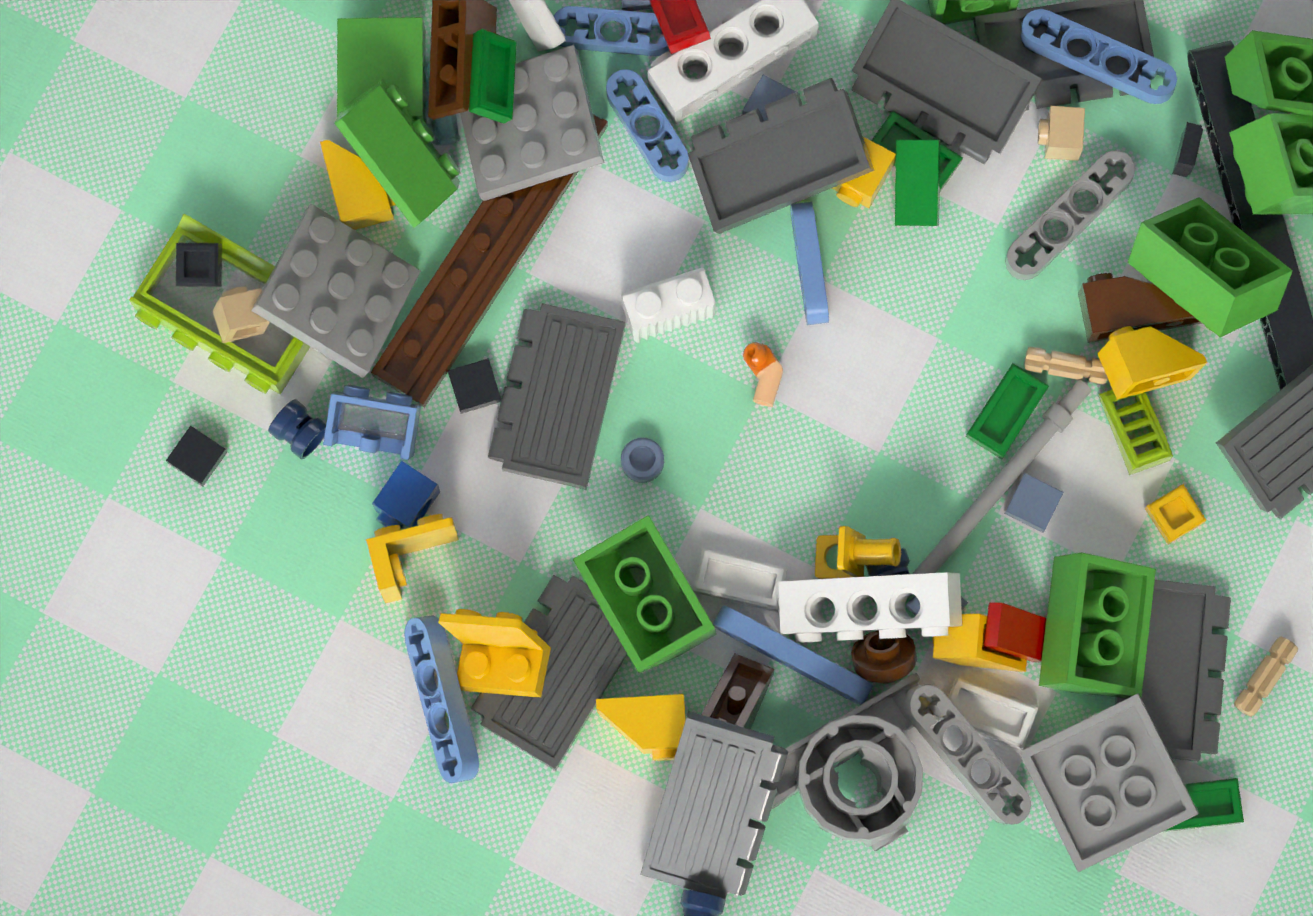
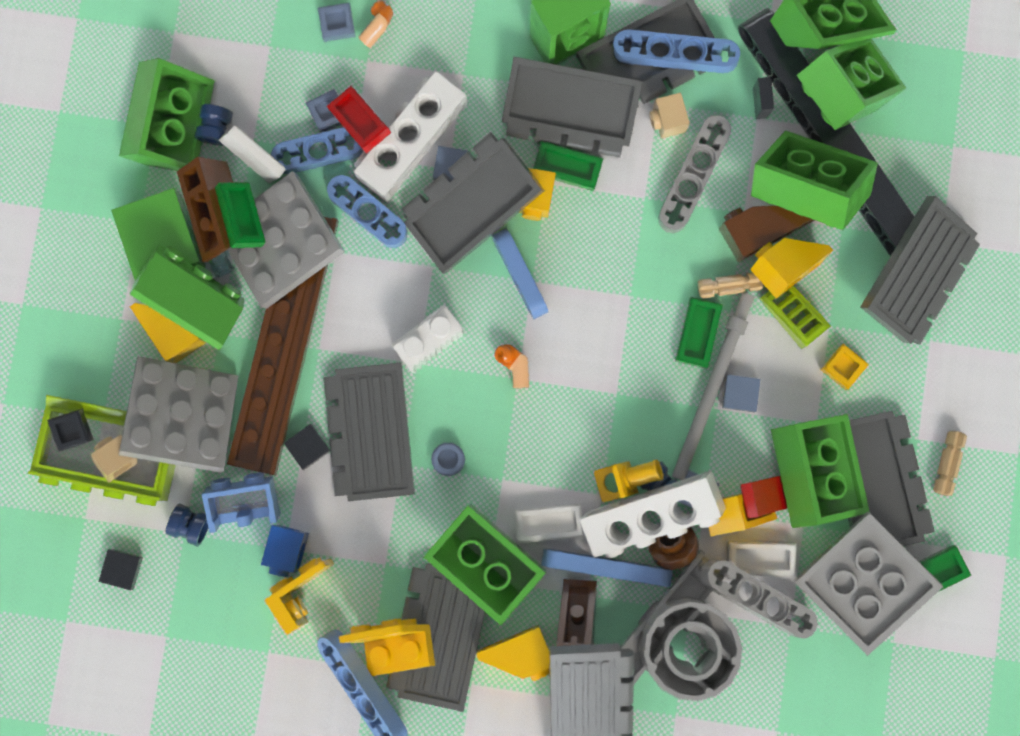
camera: 20 degrees left, 5 degrees up
(917, 182) = (577, 187): green tile -> none

